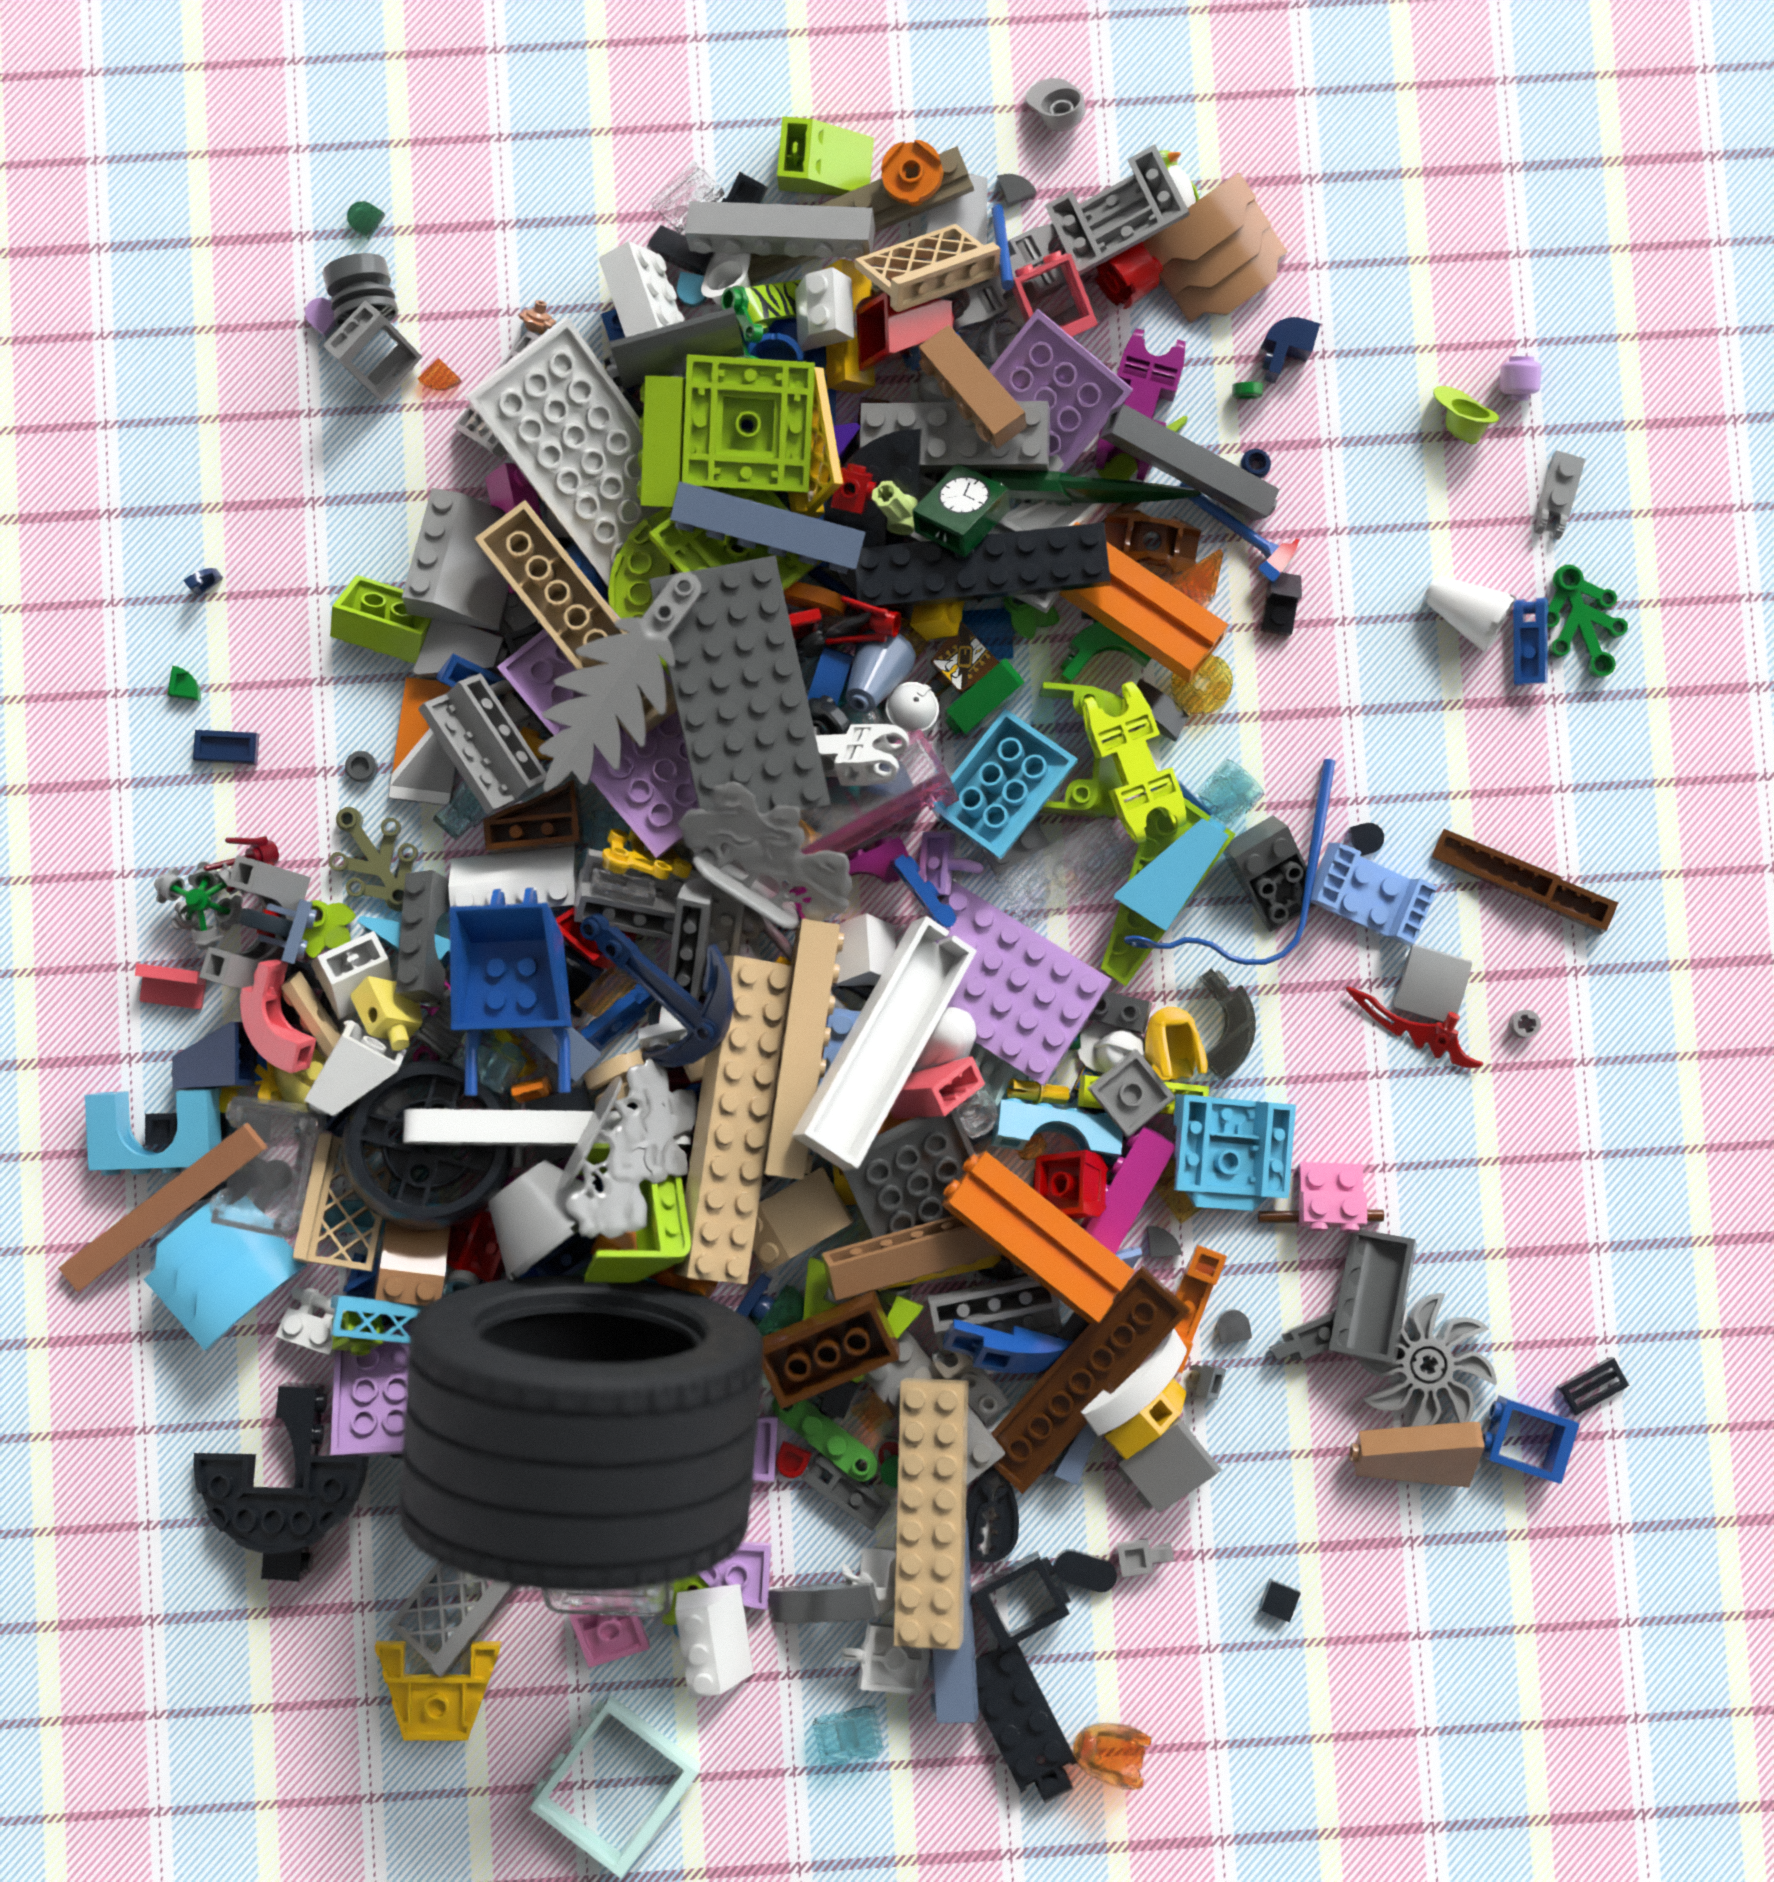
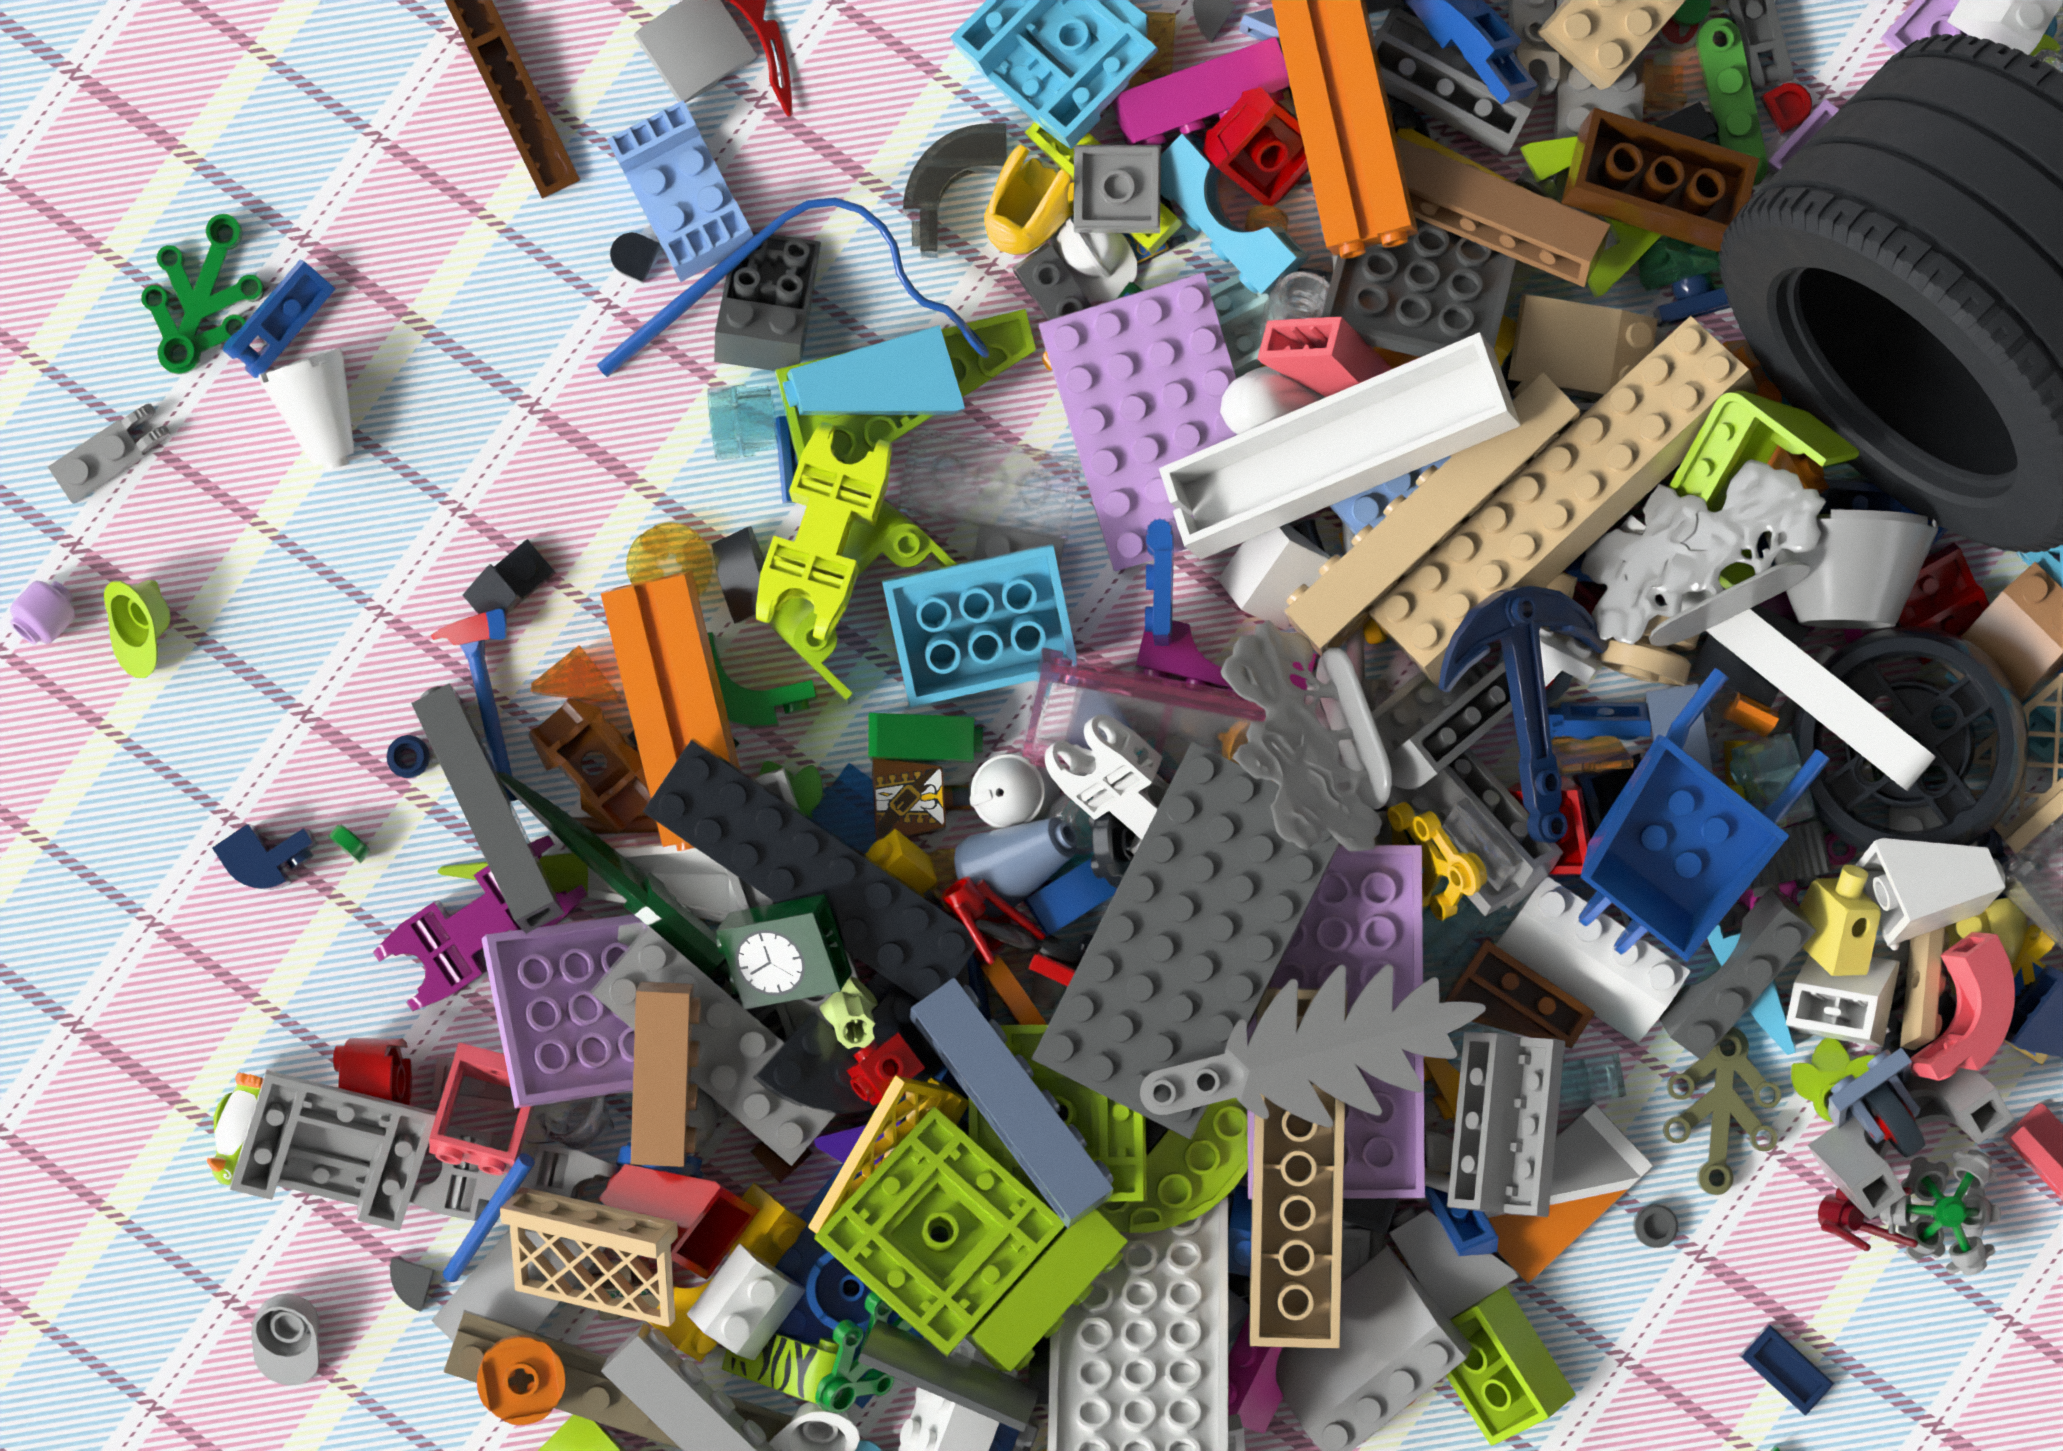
camera: 135 degrees left, 0 degrees up
(460, 1280) = (1990, 572): dark grey tile -> none
(938, 861) = (1115, 603): lavender plate -> none
(1037, 1092) = (1219, 281): yellow axle -> none
(1218, 251) = (248, 1013): medium nougat slope -> none

